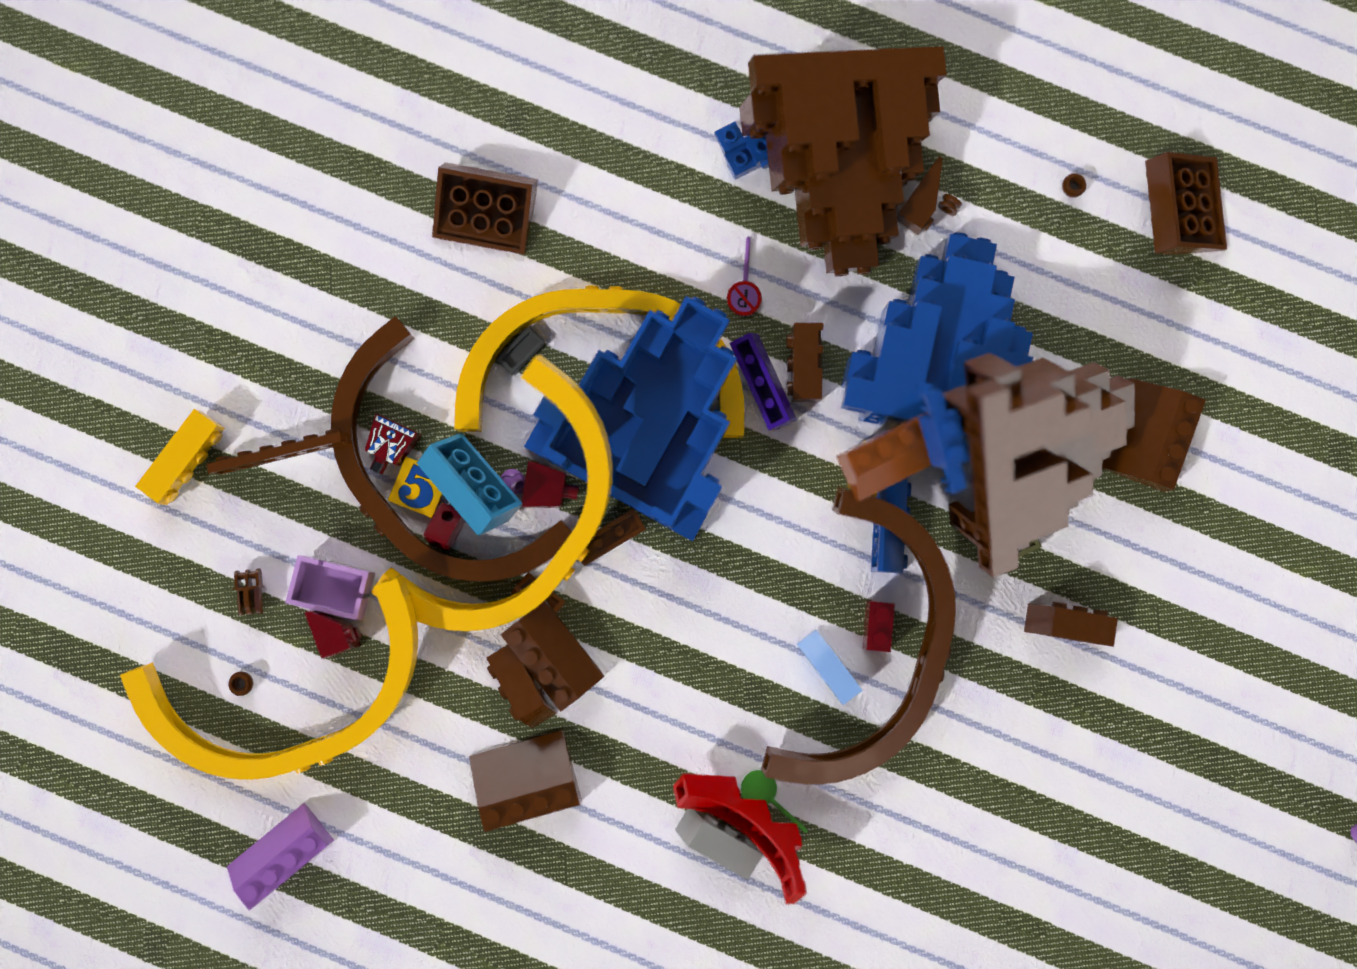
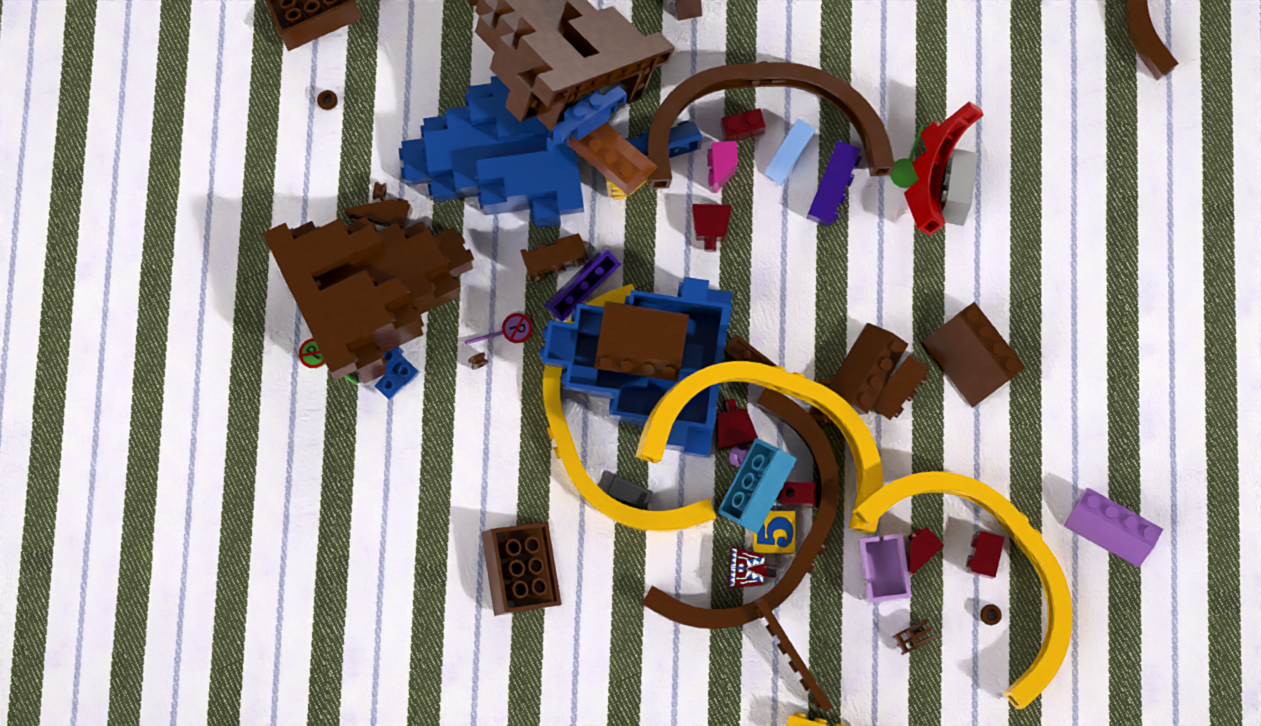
camera: 110 degrees left, 5 degrees down
(304, 703) = (985, 554): none -> dark red brick
(668, 412) = (641, 341): none -> reddish brown slope
(722, 242) = (478, 361): none -> reddish brown bush
(775, 703) = (833, 184): none -> dark purple brick
(779, 548) = (710, 224): none -> dark red torso
(840, 586) = (723, 163): none -> dark pink slope

